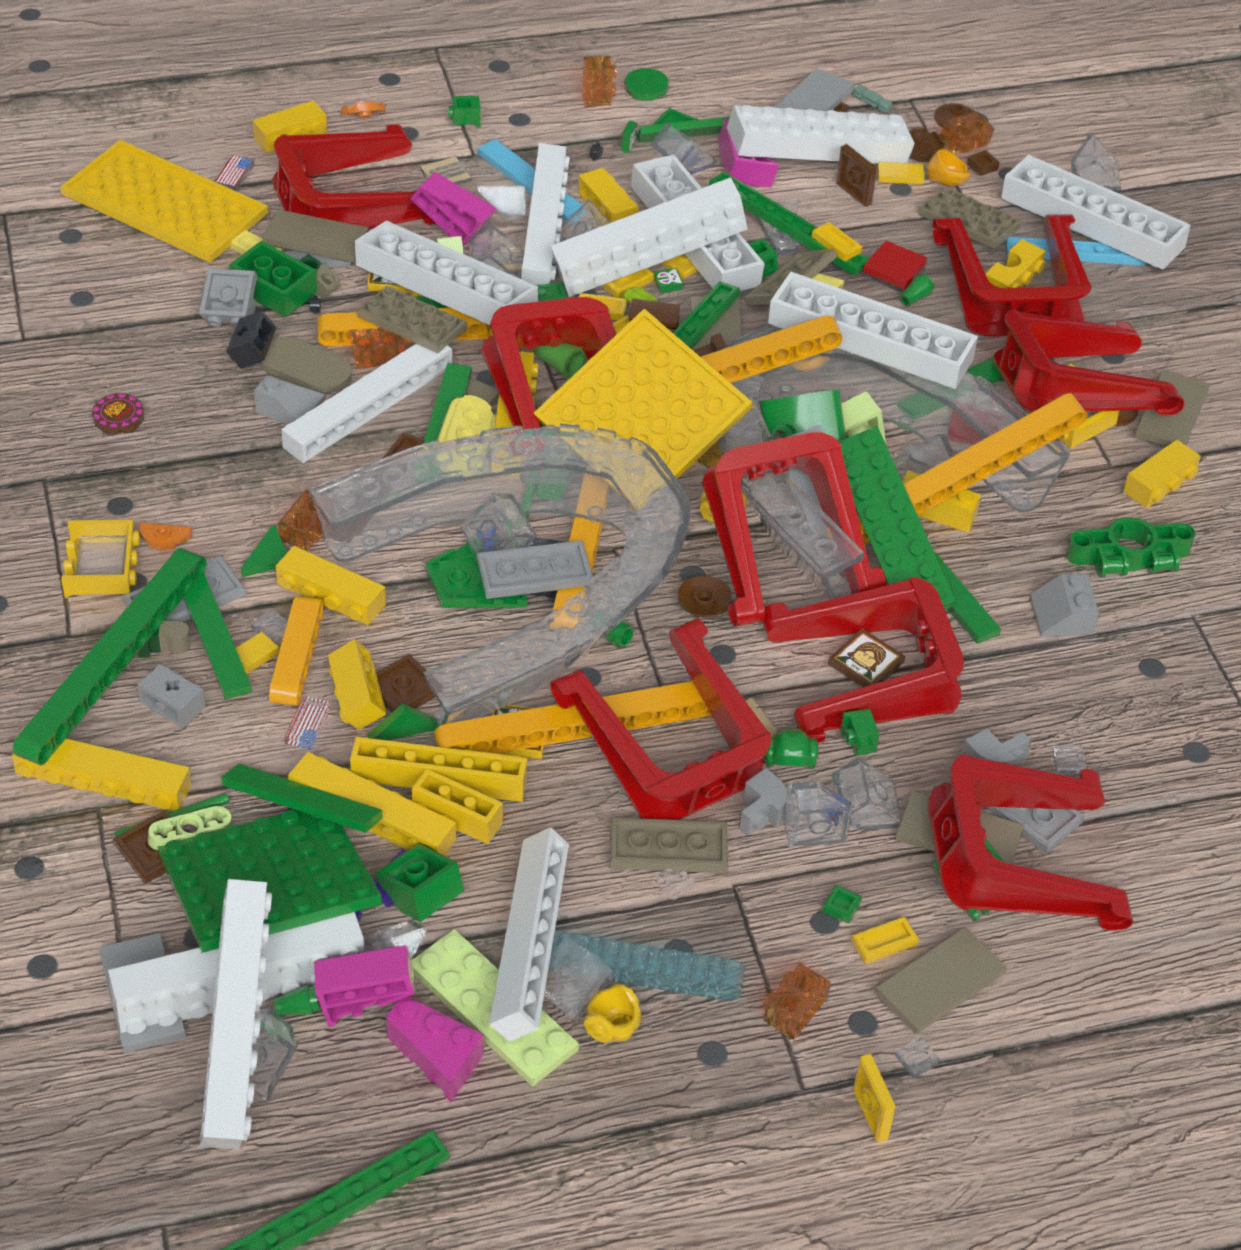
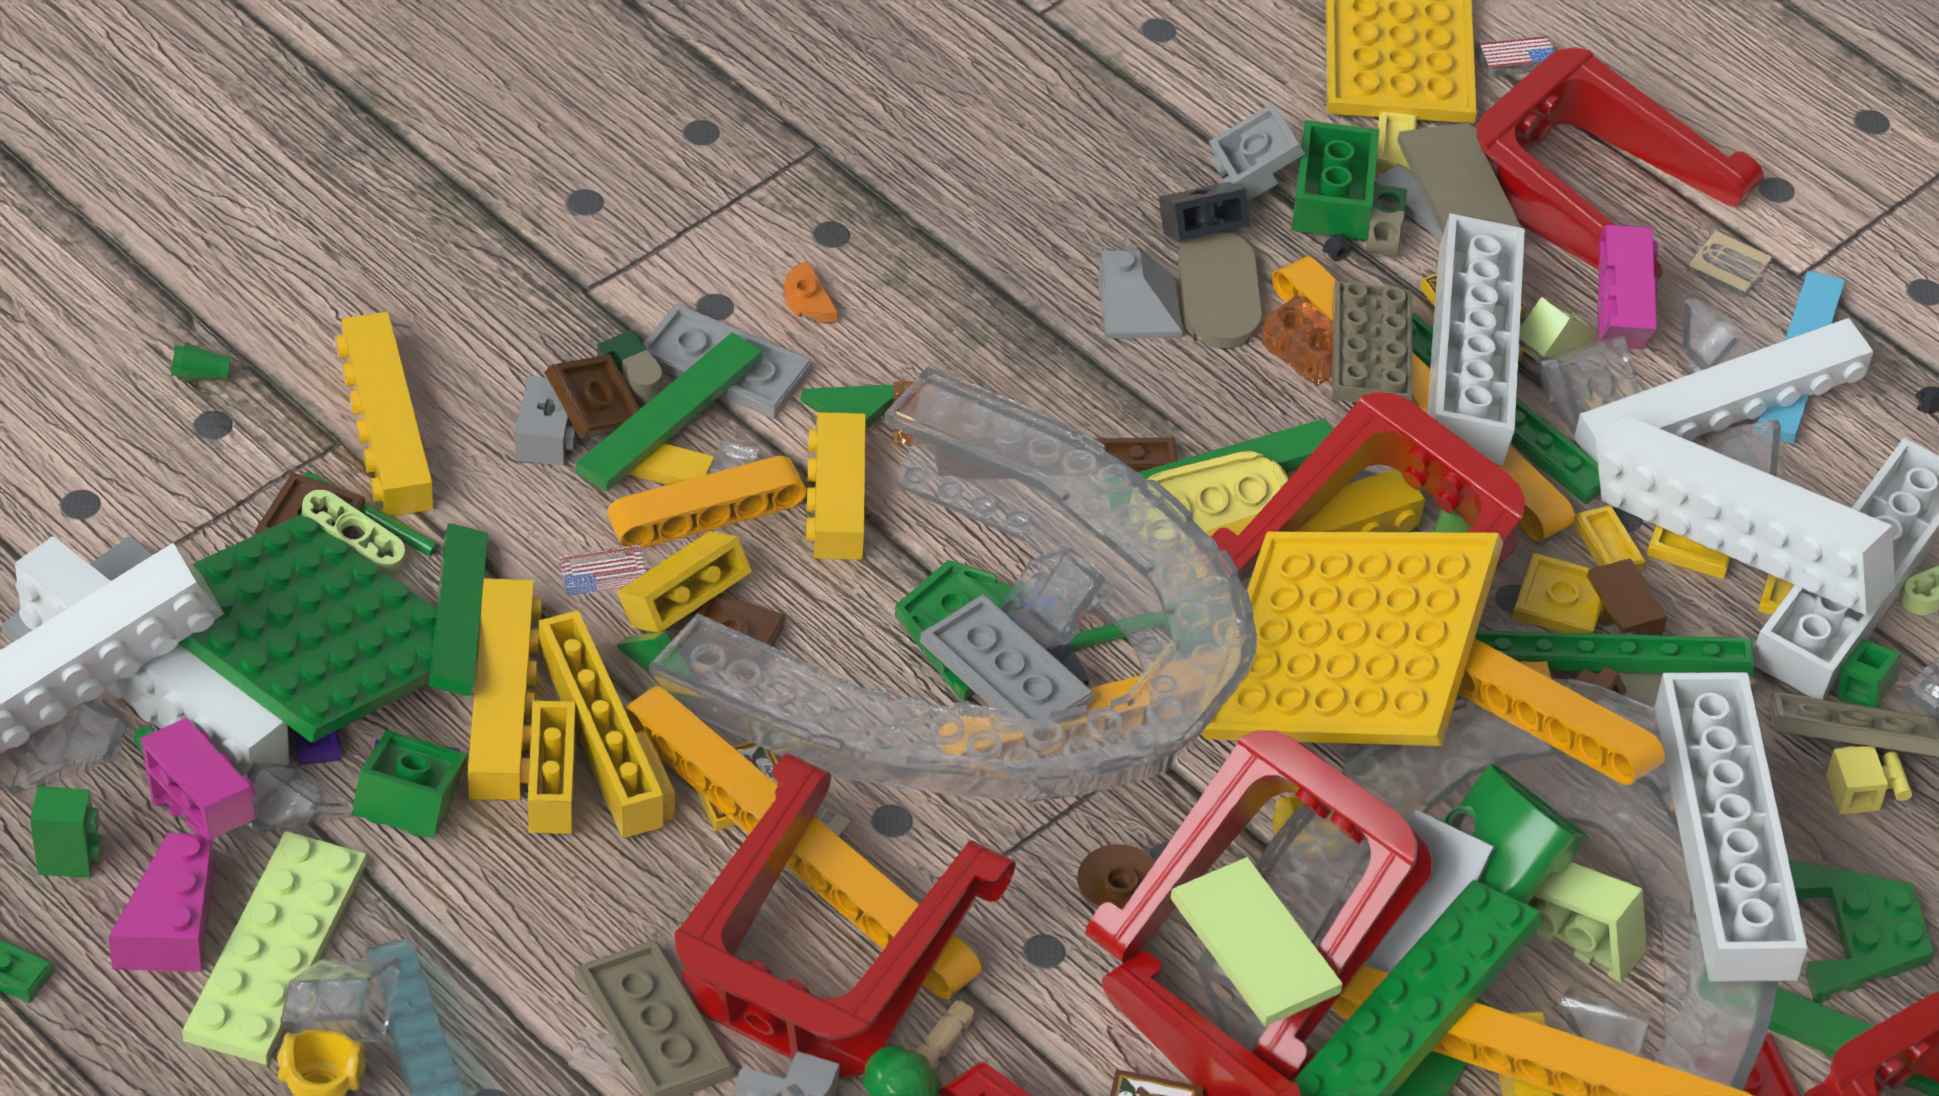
camera: 60 degrees right, 0 degrees up
(100, 557) = (721, 257): yellow window -> none
(109, 657) = (549, 326): green beam -> none
(118, 413) = (979, 156): reddish brown tile -> none
(178, 660) = (592, 394): none -> reddish brown tile
(297, 120) = (1658, 63): yellow brick -> none
(342, 1074) = (65, 832): none -> green brick
(363, 109) = (1769, 121): orange plate -> none
(363, 401) = (1192, 371): white brick -> none
(465, 110) = (1869, 223): green brick -> none
(529, 935) = (386, 920): white brick -> none
(606, 194) = (1835, 448): yellow brick -> none
(620, 635) = (982, 816): green cone -> none
(638, 293) = (1661, 574): lime tile -> none
(668, 280) = (1731, 592): green tile -> none
(825, 542) = (1256, 941): none -> yellowish green tile

